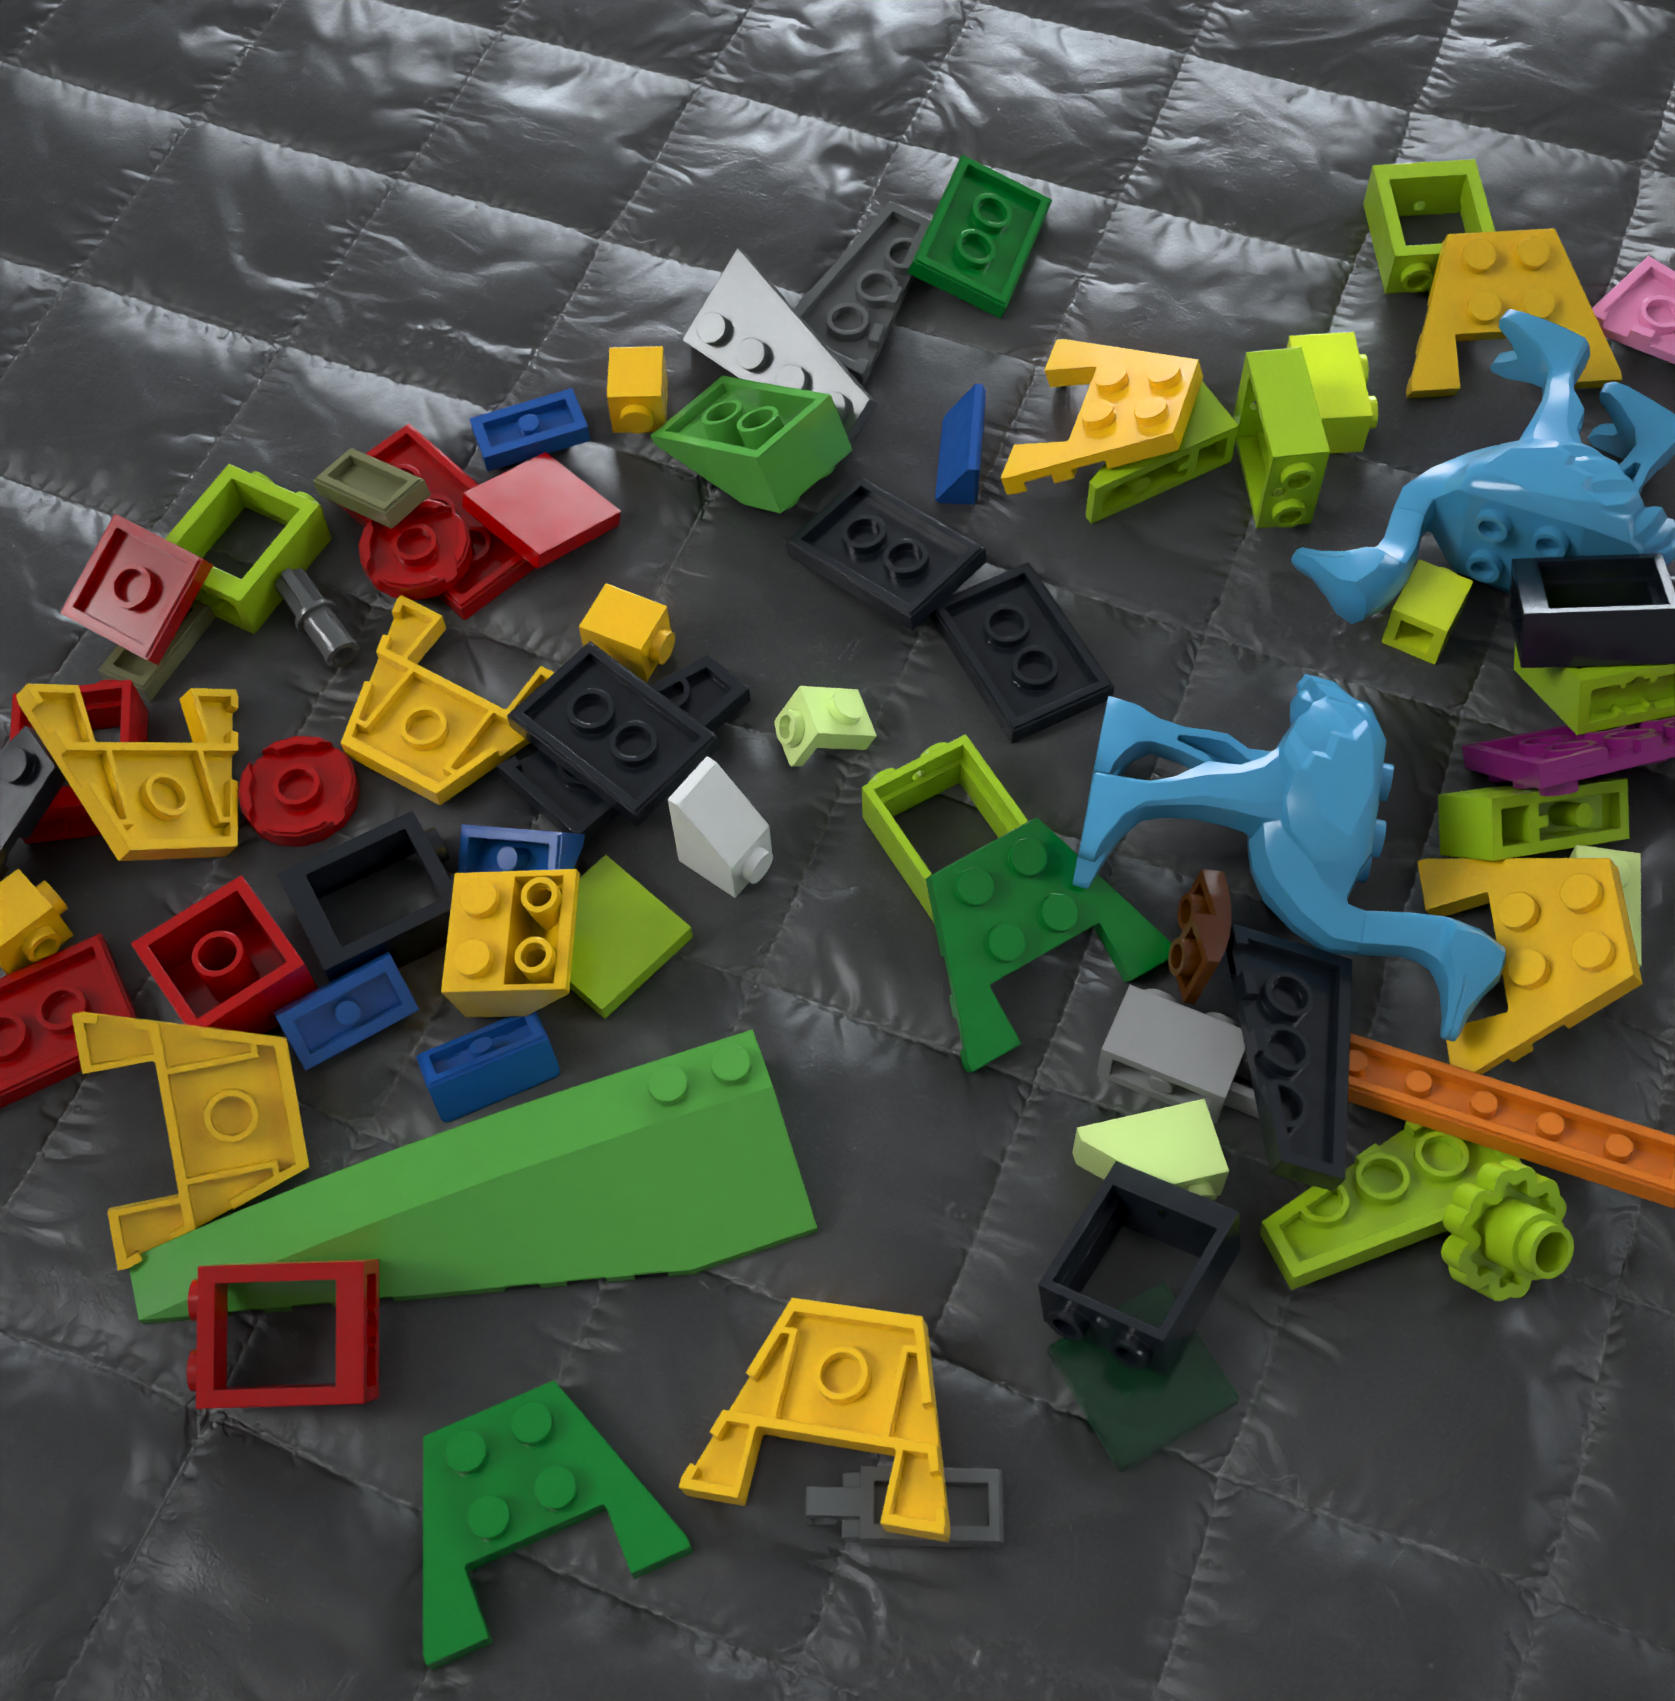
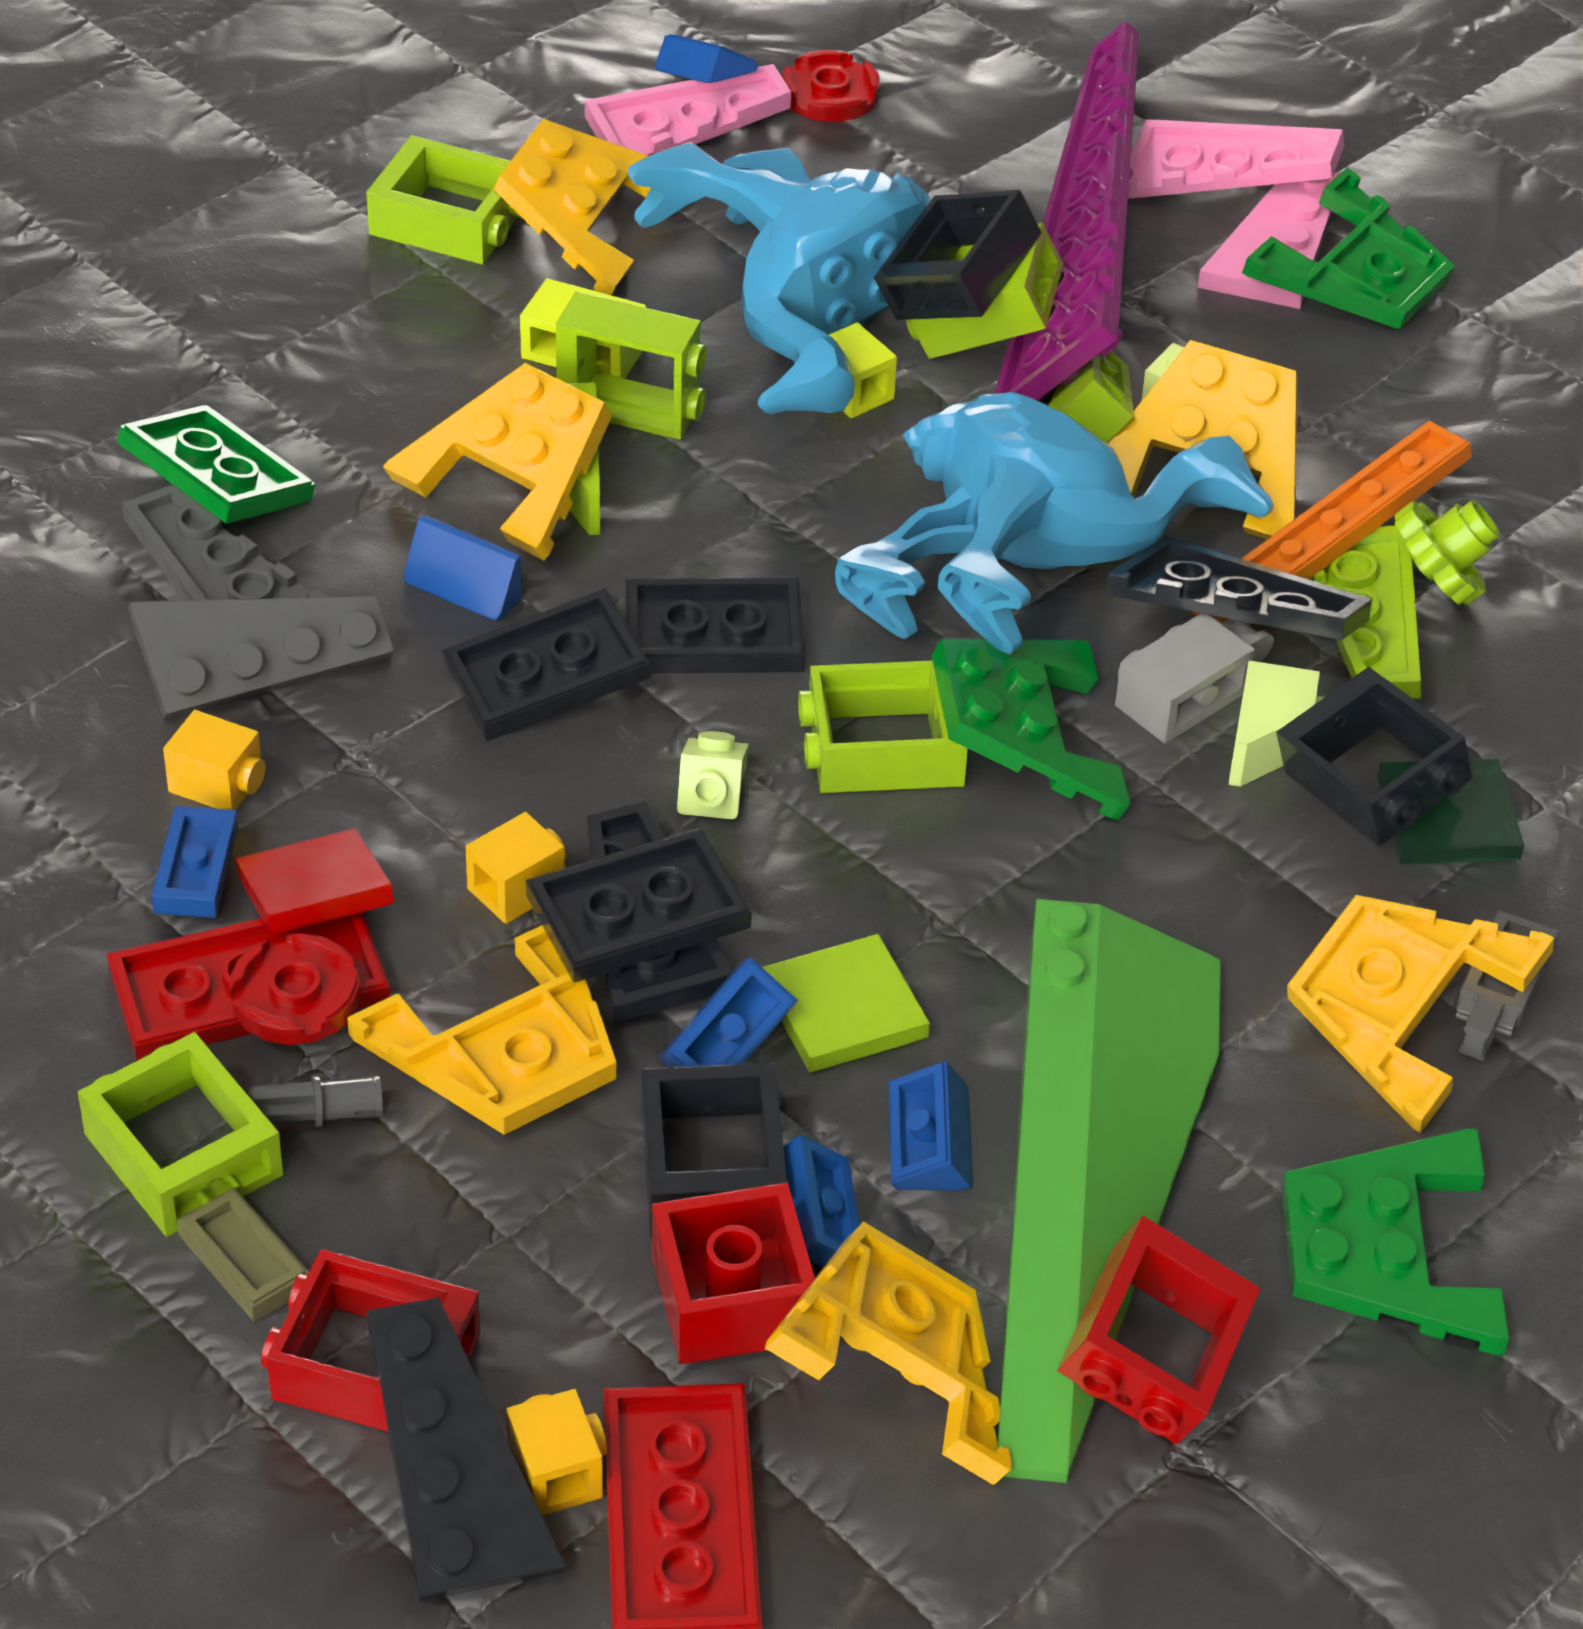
camera: 70 degrees left, 15 degrees down
(136, 589) = (193, 1218): tile -> none
(147, 795) = (460, 1259): yellow wing -> none
(299, 791) = (522, 1186): red tile -> none
(371, 487) = (197, 990): olive tile -> none
(510, 941) = (845, 1033): yellow slope -> none
(719, 830) = (800, 868): white slope -> none
(757, 440) = (344, 700): bright green slope -> none
(1206, 928) = (1095, 606): reddish brown slope -> none

